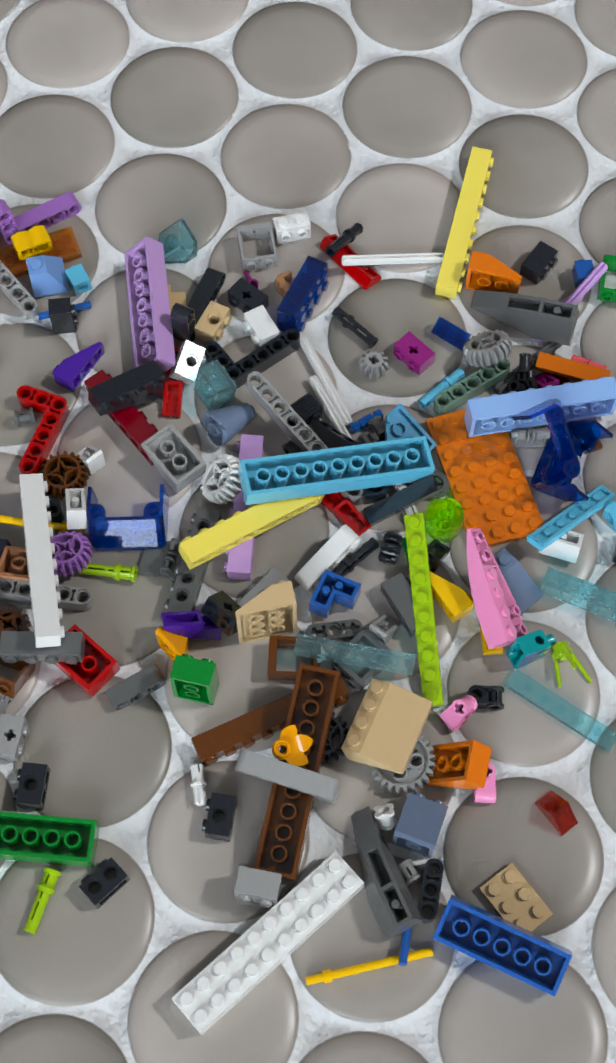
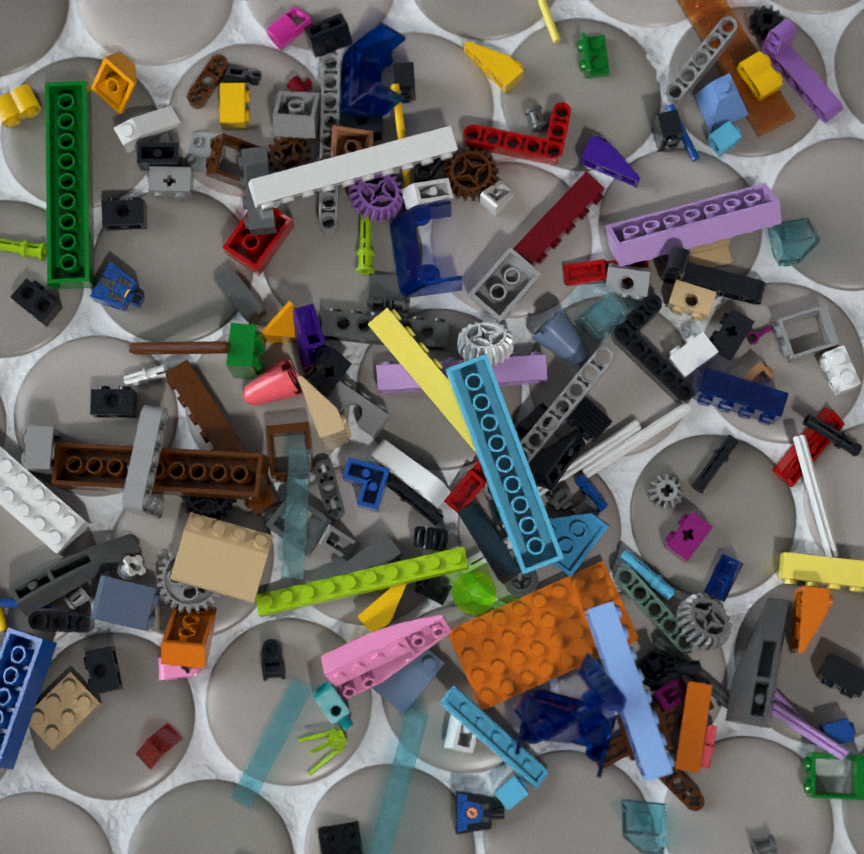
camera: 85 degrees right, 15 degrees up
(107, 801) = (116, 289): none -> torso
(128, 389) = (574, 219): black wedge -> none
(181, 738) = (192, 347): none -> reddish brown axle
(229, 664) = (273, 384): none -> coral cone
(295, 745) = (177, 462): light orange plate -> none
(459, 712) = (250, 632): bright pink piece -> none
(491, 847) = (112, 680): none -> black brick

